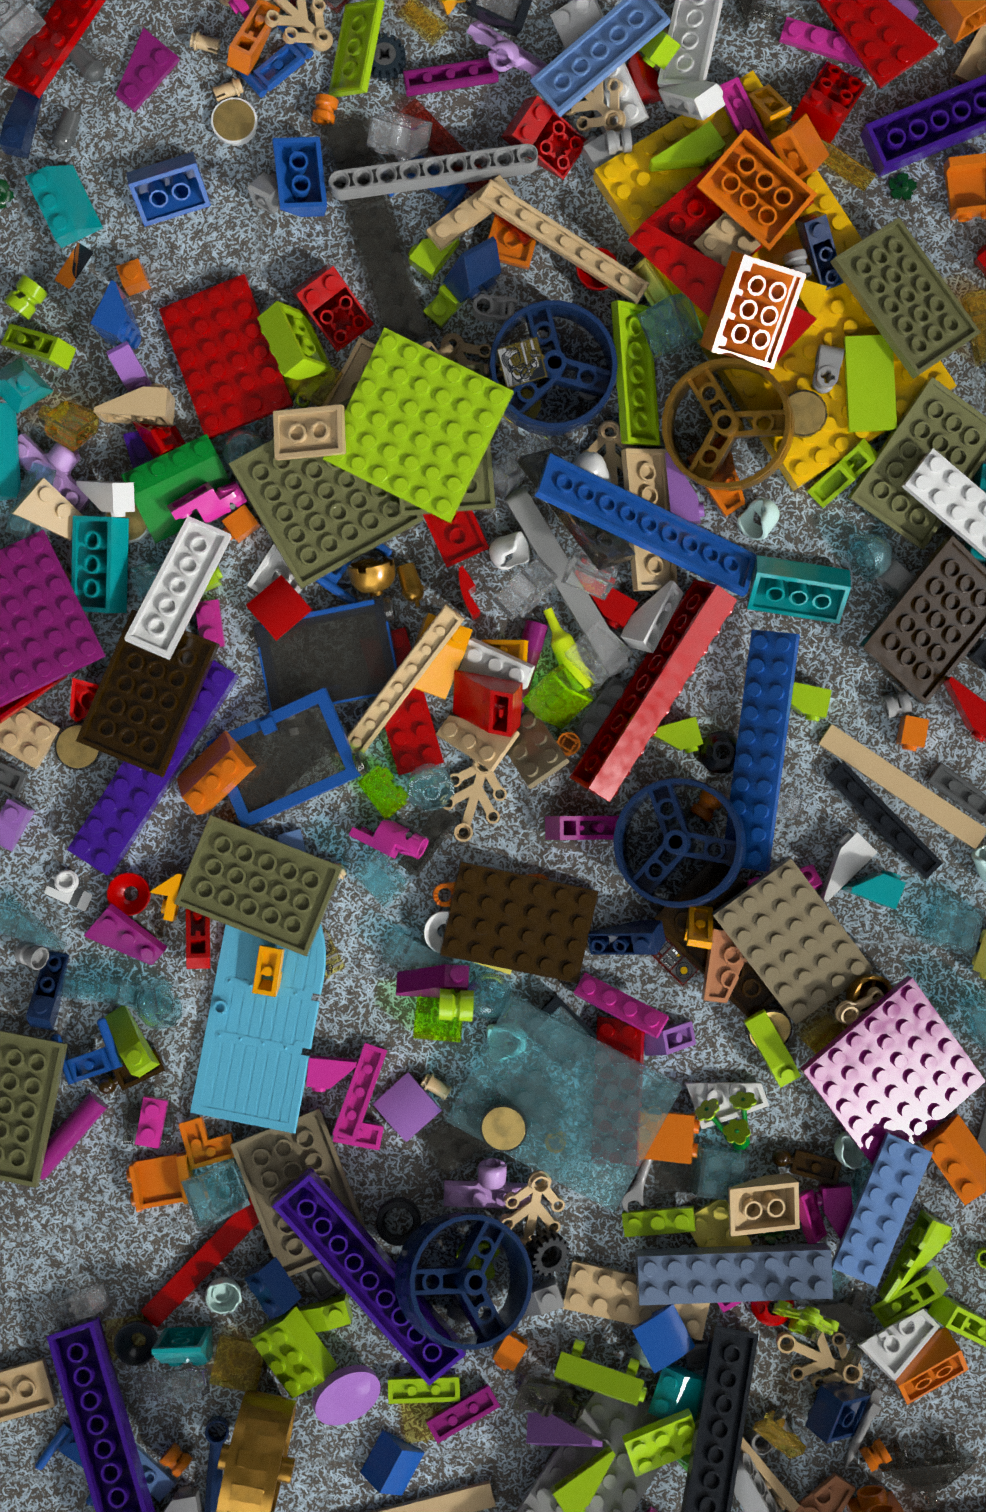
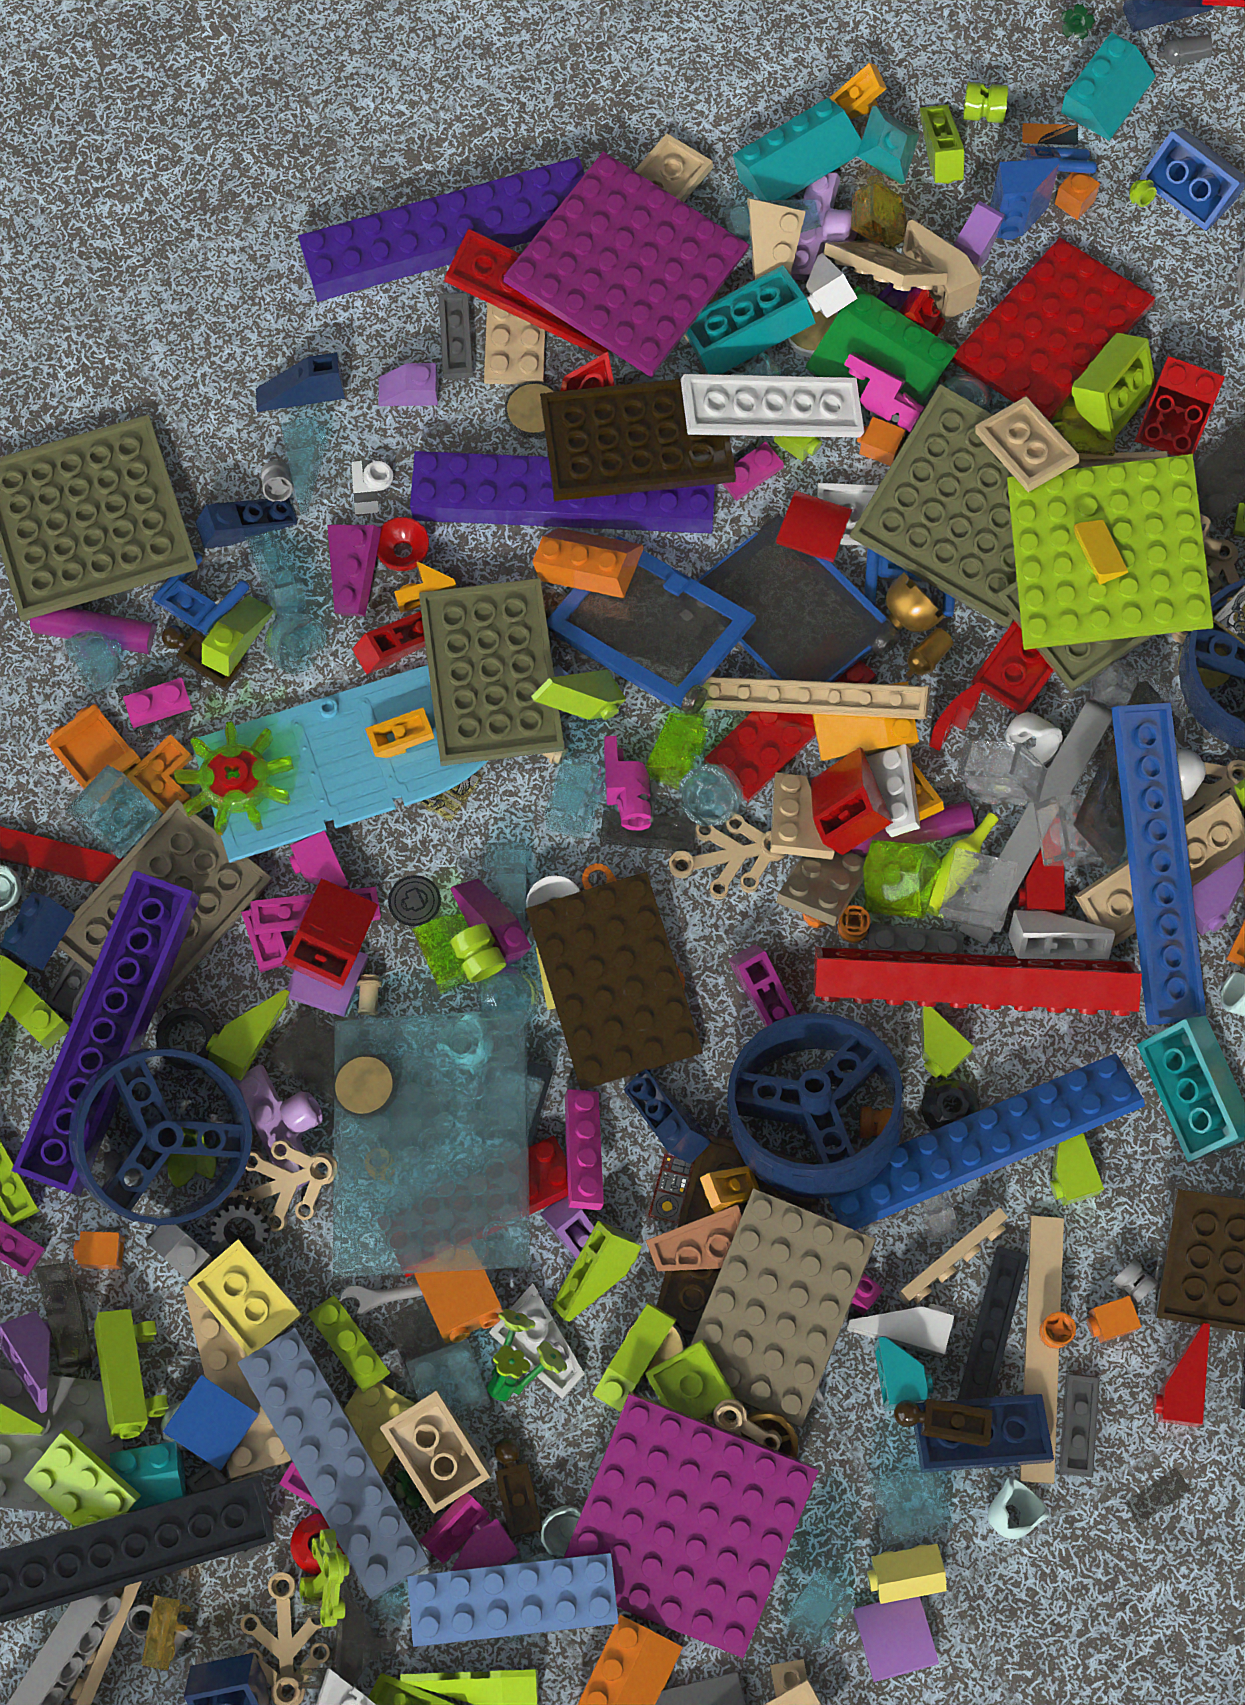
camera: 70 degrees right, 15 degrees down
(94, 283) = (1070, 158): none -> blue plate
(94, 1147) = (95, 657): none -> clear light blue cylinder
(116, 445) = (885, 265): none -> tan plate
(157, 231) = (1142, 192): none -> lime plate
(242, 1113) = (234, 778): none -> clear neon green gear
(313, 833) = (582, 694): none -> lime slope
(386, 1020) = (414, 900): none -> sticker
(386, 1093) = (330, 934): none -> red slope
(417, 432) = (1100, 550): none -> yellow slope
(423, 1188) = (243, 1037): none -> lime slope
(597, 1275) = (245, 1298): none -> light yellow plate
(701, 1039) = (598, 1267): none -> lime slope
(810, 1023) = (690, 1382): none -> lime plate
(816, 799) = (944, 1266): none -> tan plate
(905, 770) = (1060, 1325): none -> orange wheel
(925, 879) = (947, 1421): none -> dark brown plate
(939, 859) = (1017, 1437): none -> dark blue plate

